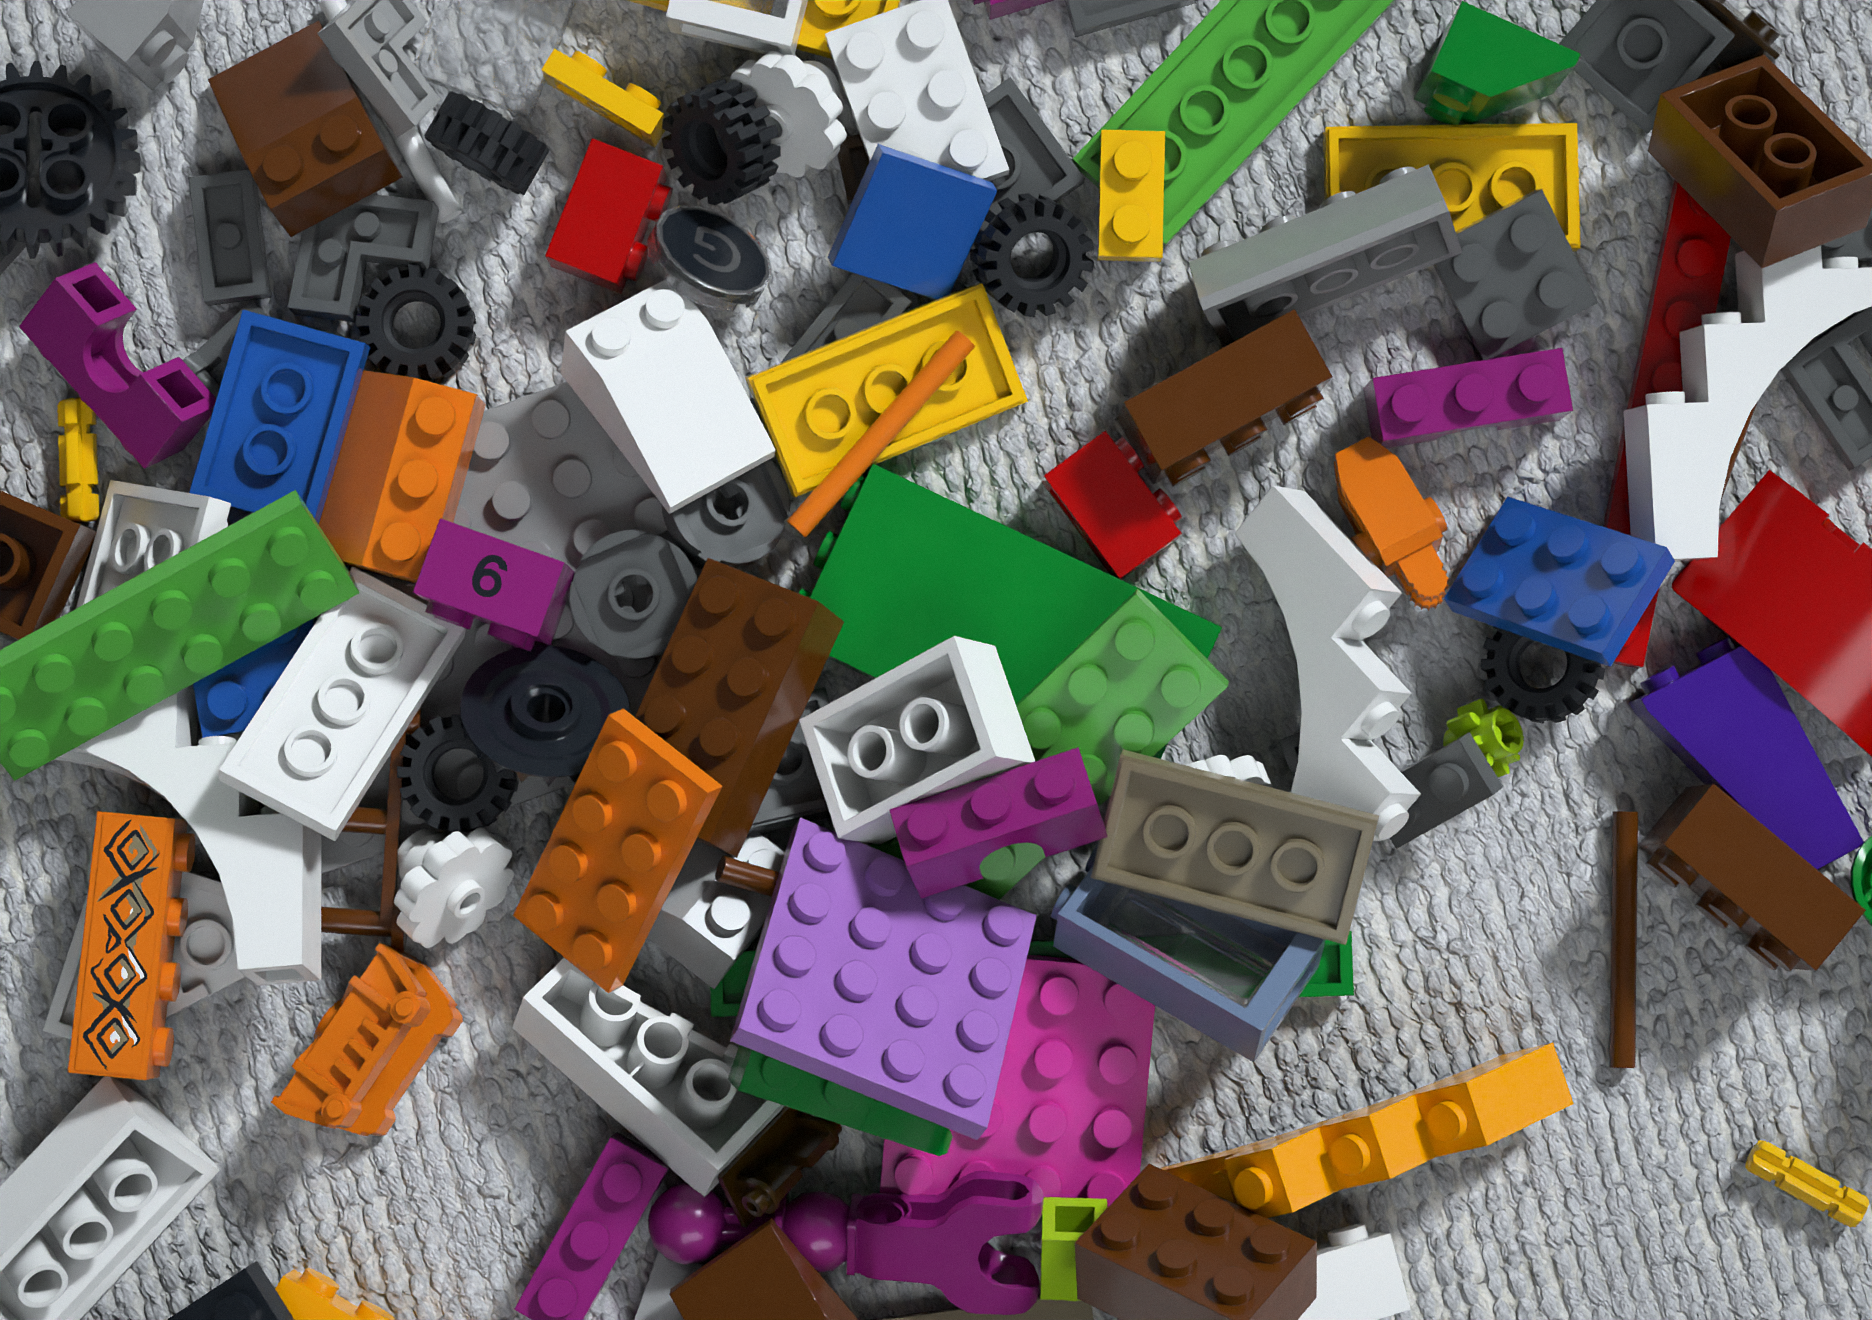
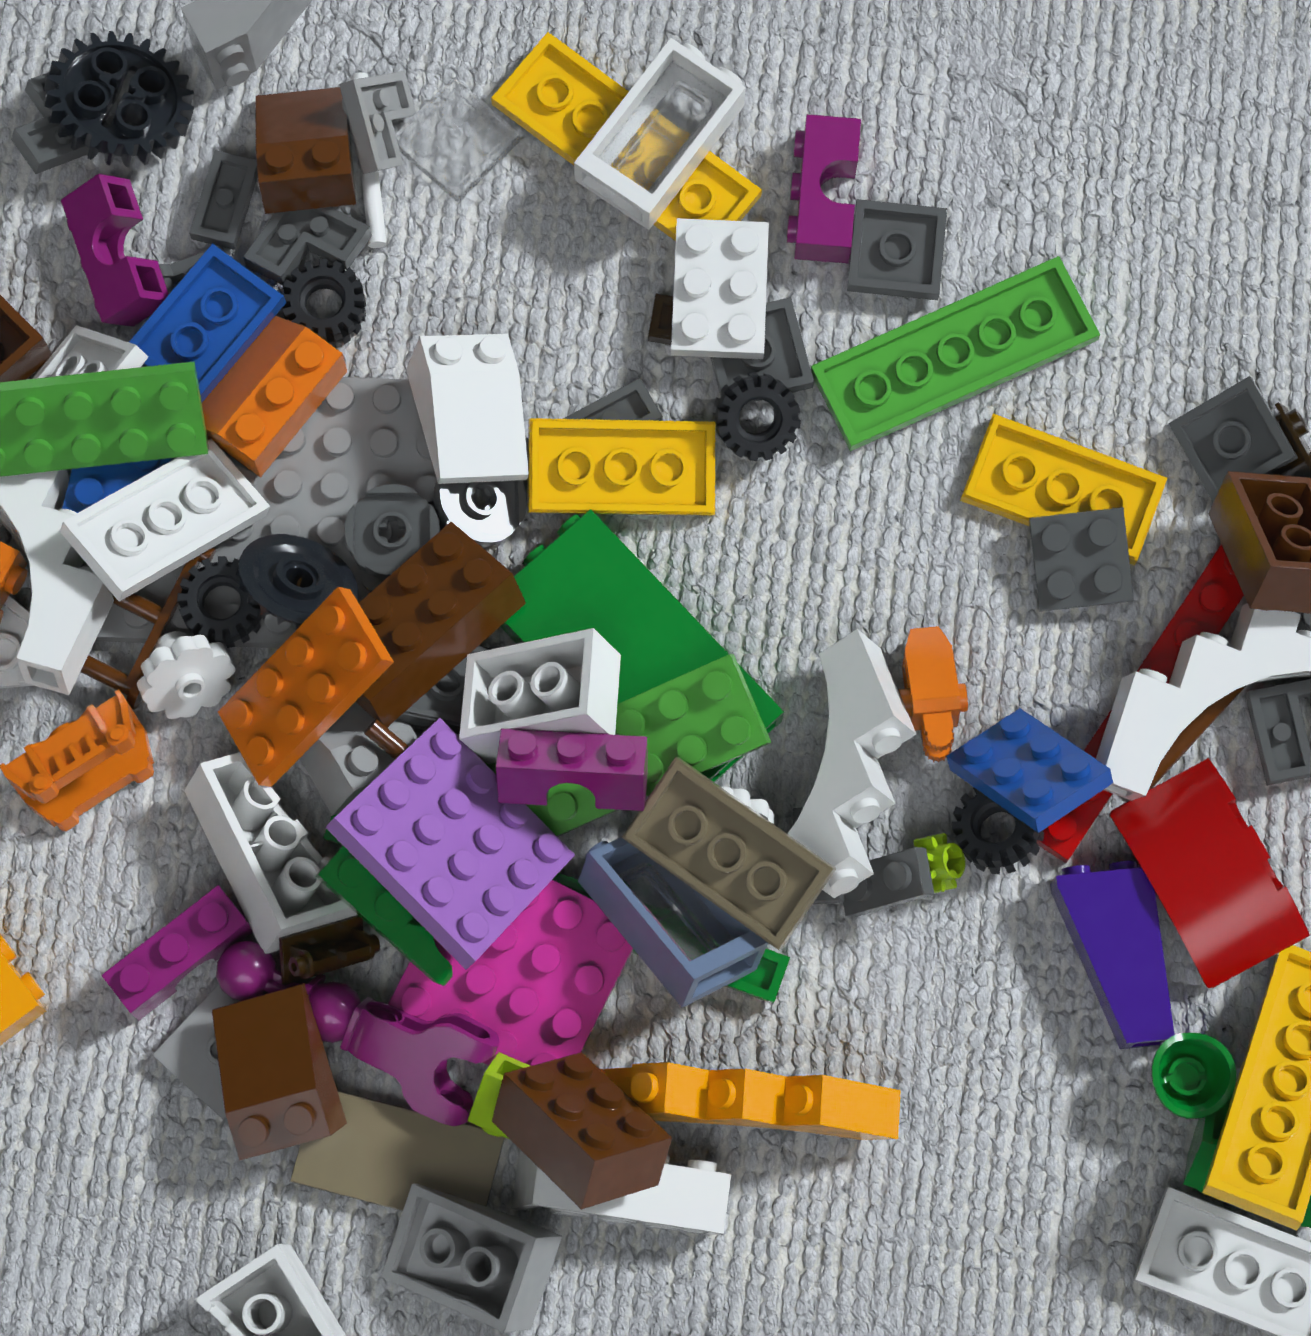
camera: 25 degrees right, 10 degrees down
(78, 461) = (61, 302): yellow axle -> none
(486, 143) = (421, 202): black tyre -> none
(495, 583) = (300, 482): magenta brick -> none
(583, 81) = (504, 192): yellow plate -> none
(609, 216) = (482, 283): red brick -> none
(709, 257) = (538, 333): tile -> none
(742, 130) = (591, 246): black tyre -> none
(801, 106) = (630, 259): white plant -> none
(880, 433) = (604, 492): orange bar -> none
(911, 223) = (683, 361): blue tile -> none
(1113, 505) = (743, 604): red brick -> none
(1131, 195) = (840, 404): yellow plate -> none
(1225, 400) = (848, 560): reddish brown brick -> none
(1325, 254) = (954, 493): light grey slope -> none
(1468, 397) = (991, 620): magenta arch -> none
(1489, 68) = (1119, 414): green slope -> none
(1623, 939) = (980, 1044): reddish brown bar -> none
(1749, 880) = (1082, 1029): reddish brown brick -> none
(1807, 1183) = (1043, 1268): yellow axle -> none

